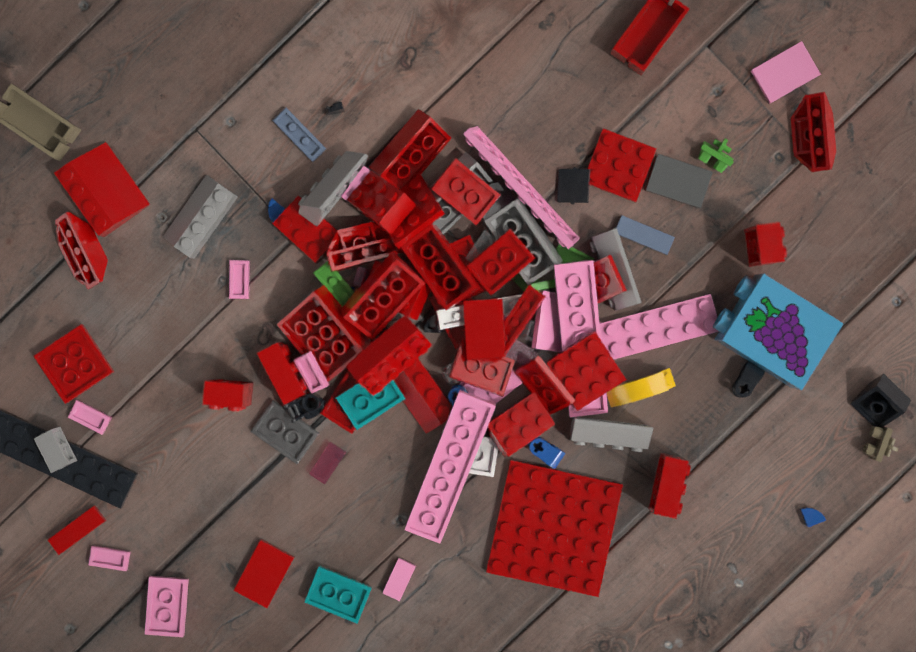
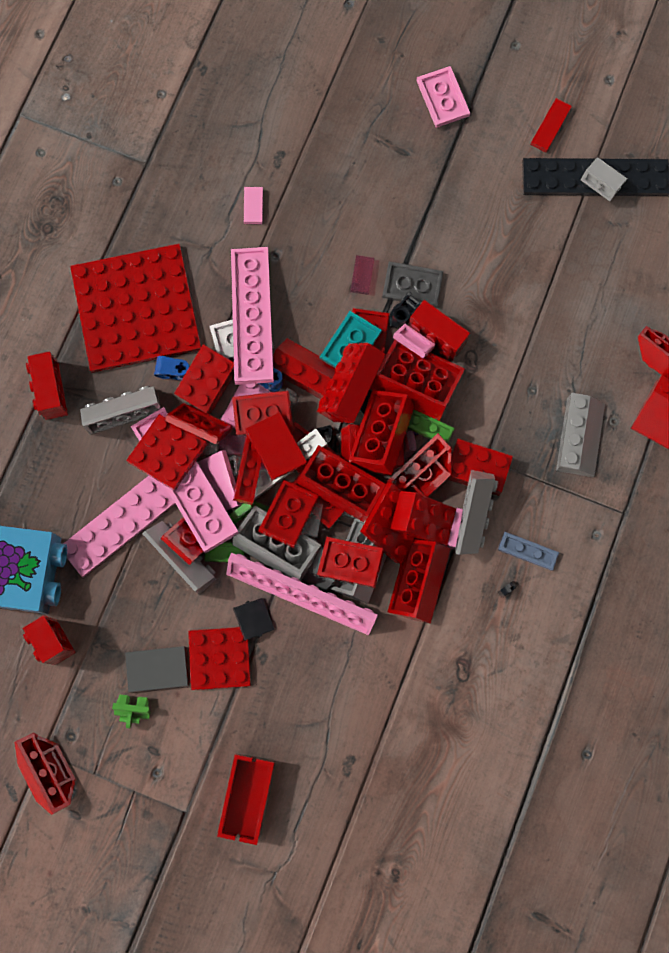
camera: 150 degrees right, 10 degrees down
(73, 364) = (625, 259): red plate -> none
(89, 417) = (588, 222): bright pink tile -> none
(109, 558) = (511, 115): bright pink tile -> none
(227, 393) = (478, 288): red brick -> none
(239, 279) = (518, 397): bright pink tile -> none
(264, 573) = (372, 159): red tile -> none
(274, 209) = (516, 472): blue tile -> none
(338, 594) = (300, 169): teal plate -> none
(641, 388) = (107, 461): yellow arch -> none
(644, 235) = (167, 603): sand blue tile -> none
(749, 377) = (14, 515): black piece -> none
(785, 72) = (98, 821): bright pink tile -> none

